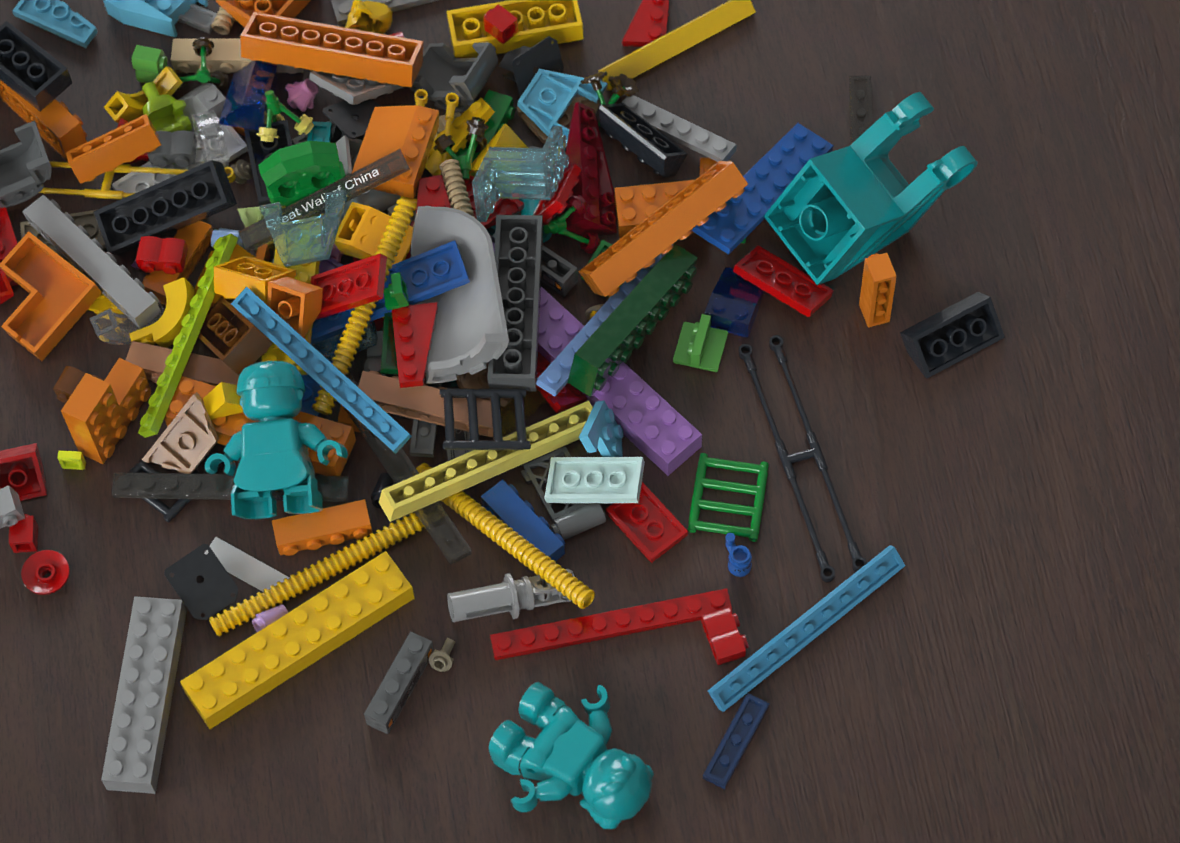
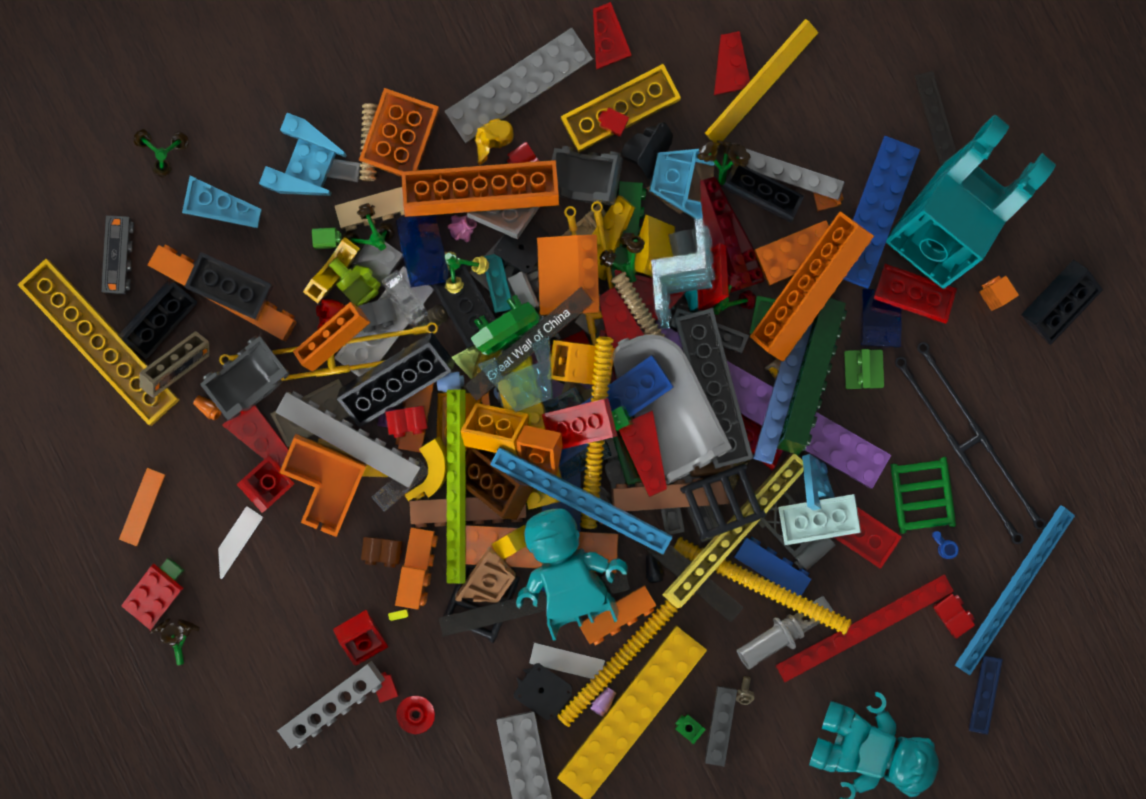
camera: 25 degrees left, 25 degrees up
(364, 683) = (697, 729): none -> green brick

